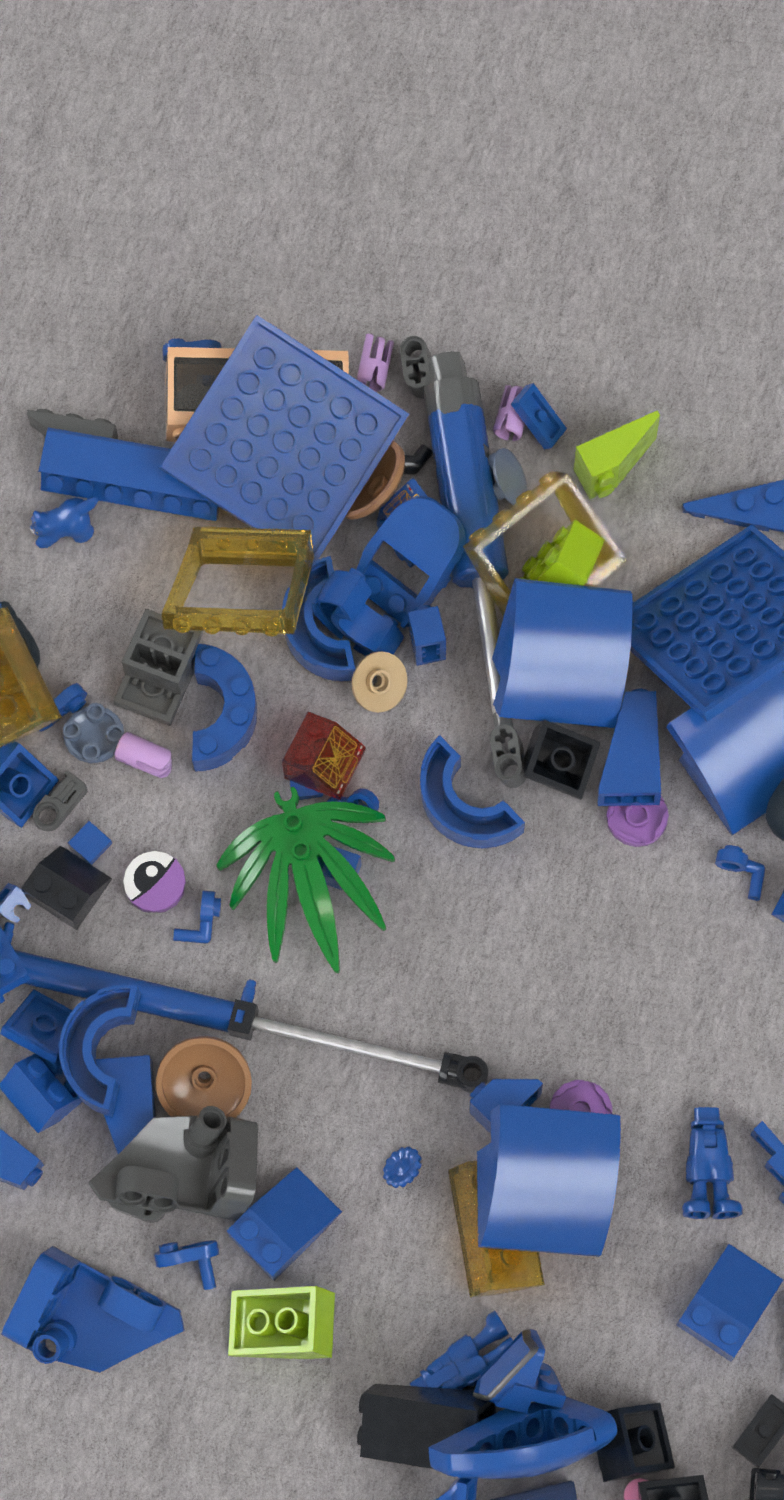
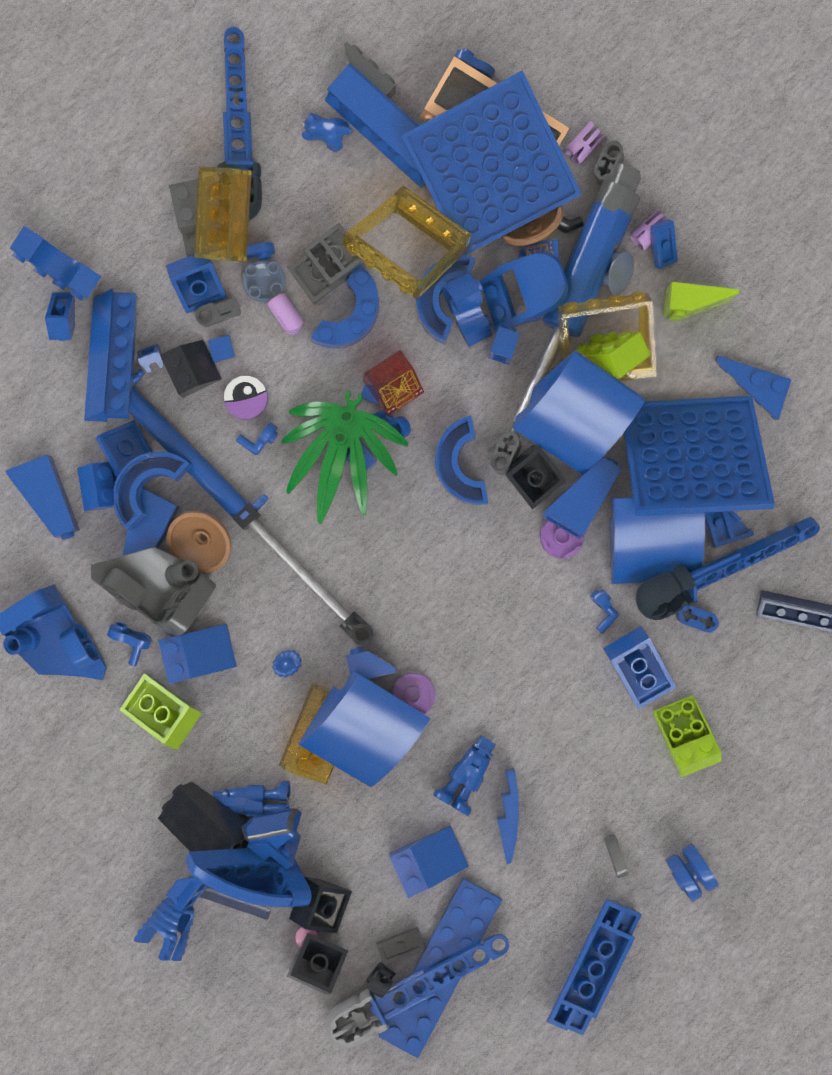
camera: 30 degrees right, 15 degrees up
(390, 681) = (460, 363): tan dish -> none

